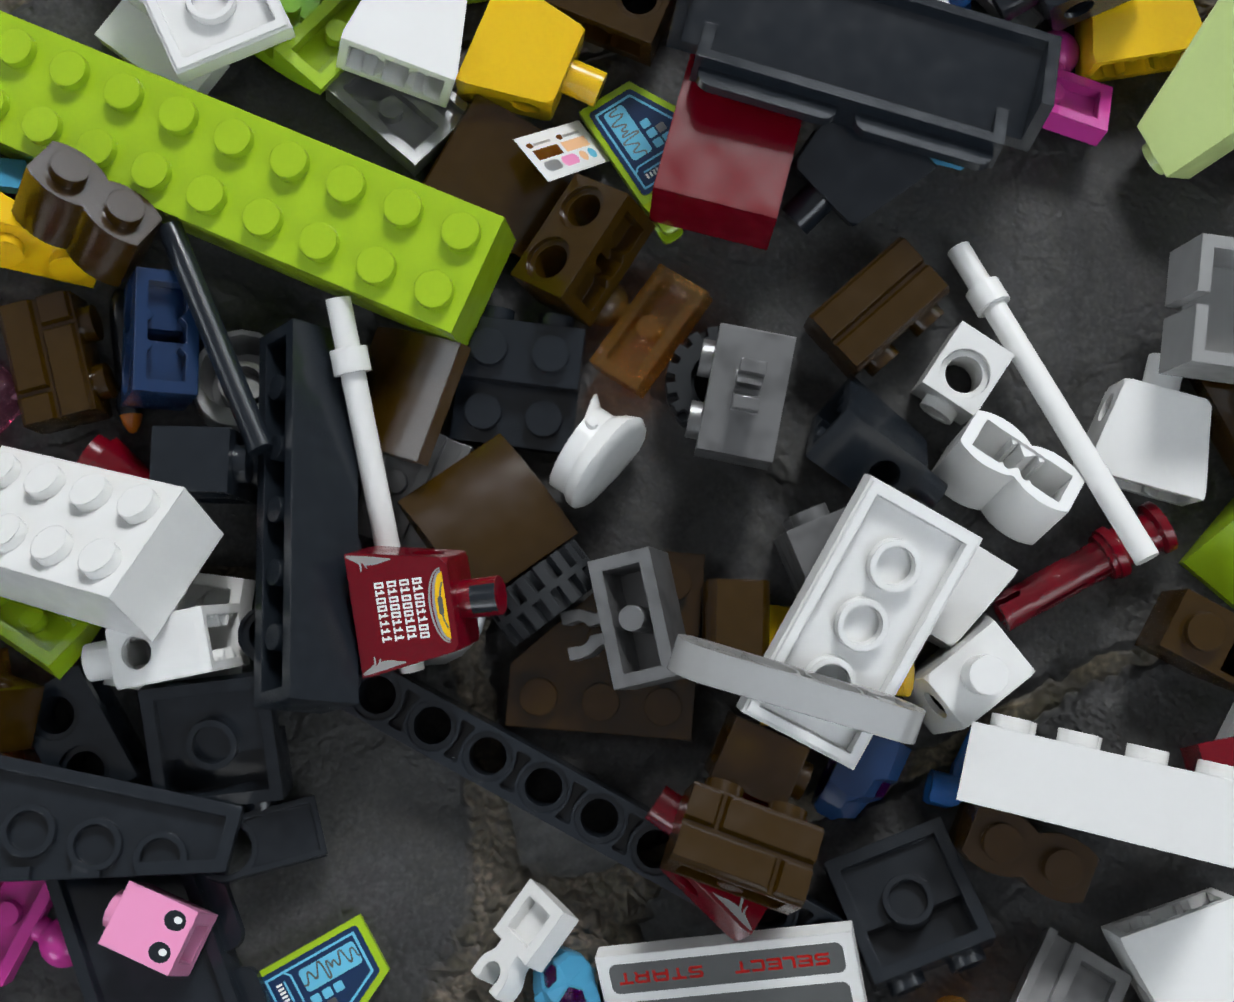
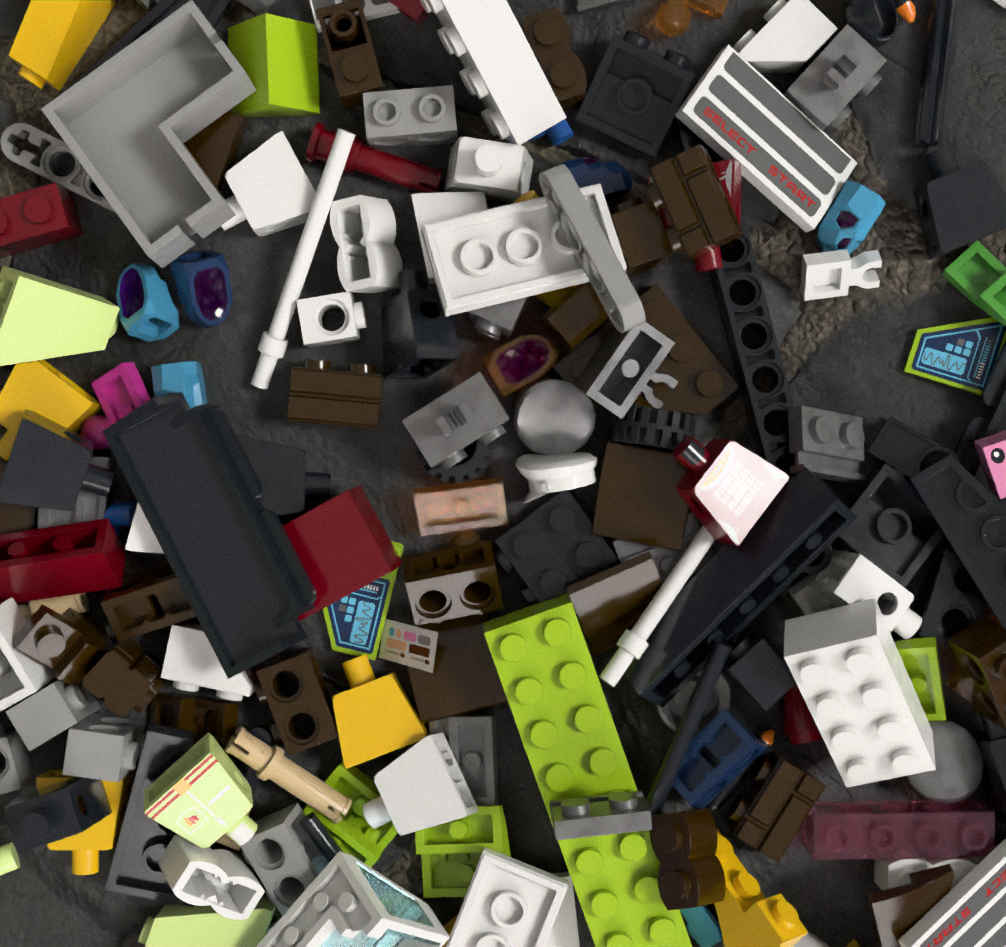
camera: 135 degrees left, 5 degrees up
(210, 153) = (600, 815): none -> flat silver plate
(362, 756) = (826, 443): none -> flat silver plate
(654, 503) = (553, 416): none -> flat silver piece
(740, 523) = (520, 362): none -> rock
(1029, 176) = (180, 377): none -> dark azure rock
(1097, 646) = (410, 117): none -> light grey brick
(1111, 281) = (203, 286): none -> dark blue rock
(1144, 209) = (145, 304): none -> dark azure rock

